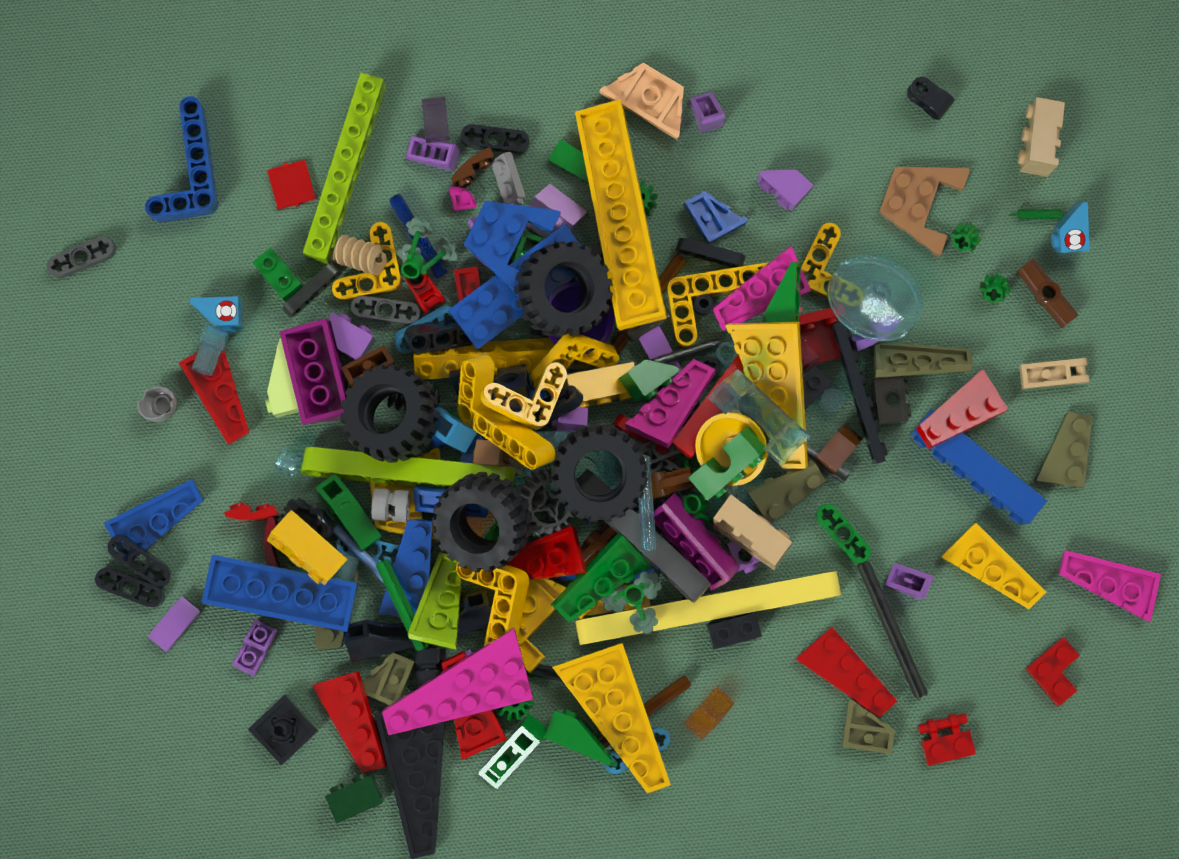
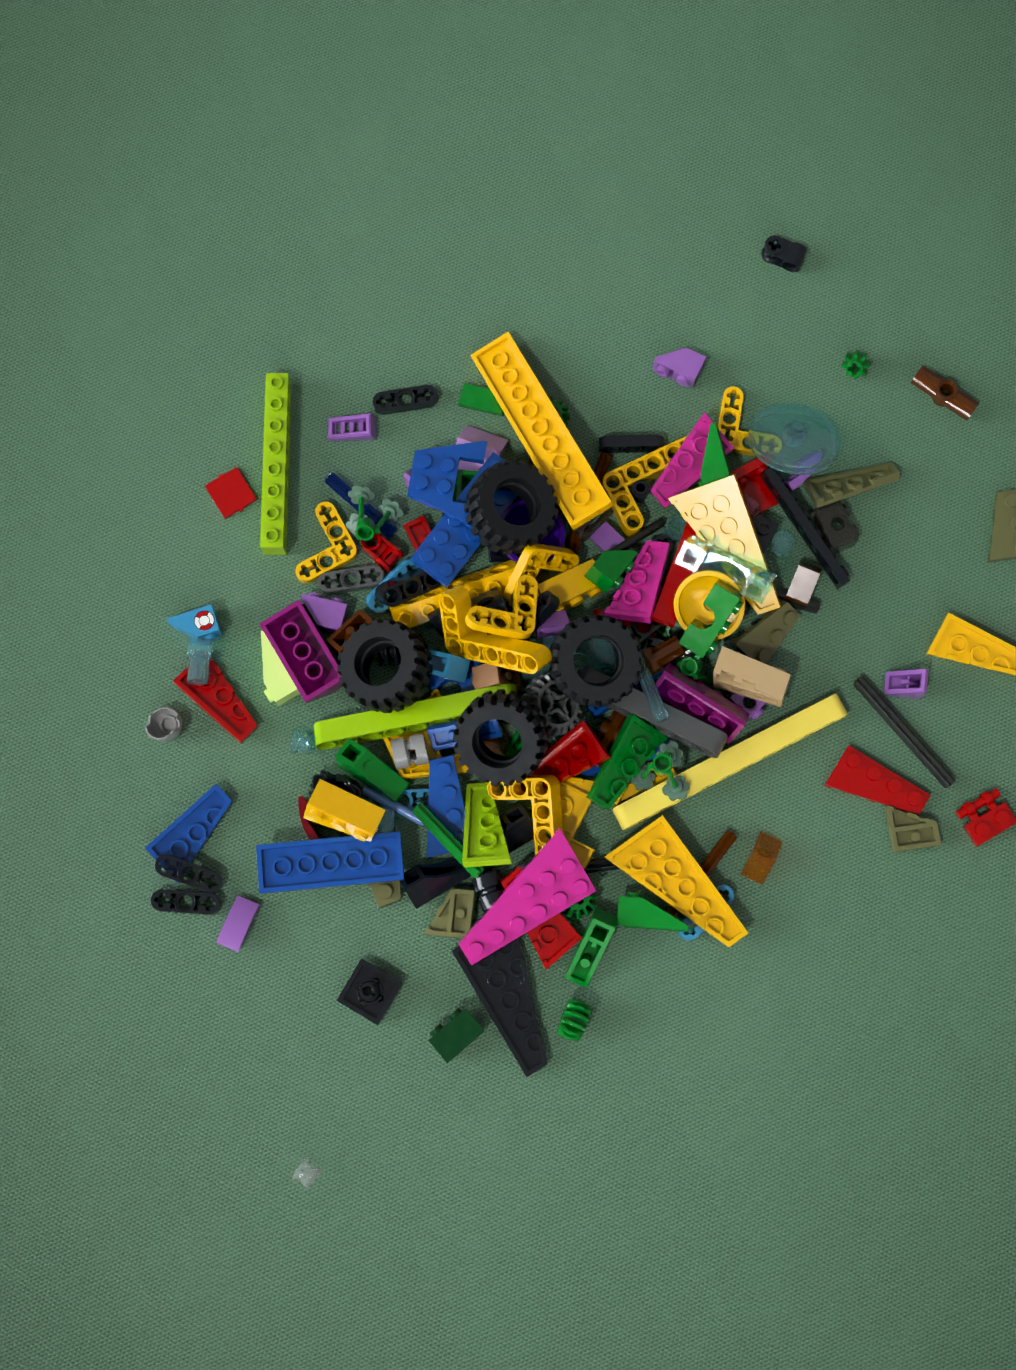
camera: 15 degrees left, 5 degrees down
(71, 253) = (63, 597): dark grey beam -> none
(195, 169) = (139, 502): blue beam -> none
(245, 512) = (273, 801): red slope -> none
(254, 648) = (320, 923): medium lavender slope -> none
(277, 274) = (243, 575): green brick -> none
(312, 289) = (277, 580): pearl dark grey beam -> none
(352, 716) = (430, 959): red wing -> none
(359, 255) = (312, 535): tan piece -> none
(435, 120) = (346, 397): clear purple tile -> none
(461, 198) = (390, 460): dark pink tile -> none
(465, 174) = (388, 437): reddish brown slope -> none
(473, 818) = (574, 1019): none -> green gear
(508, 179) = (427, 428): light grey hinge -> none
(649, 97) = (534, 324): light nougat wing -> none
(707, 112) = (590, 322): medium lavender slope -> none
(712, 217) = (623, 412): blue wing -> none
(734, 631) = (760, 775): black brick -> none
(853, 533) = (819, 644): green beam -> none
(910, 199) = (795, 346): medium nougat wing -> none
(966, 409) = (905, 516): wing -> none
(986, 476) = (934, 563): blue brick -> none
(995, 288) = (901, 405): green gear -> none
(1039, 214) = (914, 327): green piece -> none
(1041, 137) = (894, 259): tan wedge -> none
(1053, 373) = (973, 461): tan plate -> none
(1072, 231) = (949, 330): dark azure slope -> none

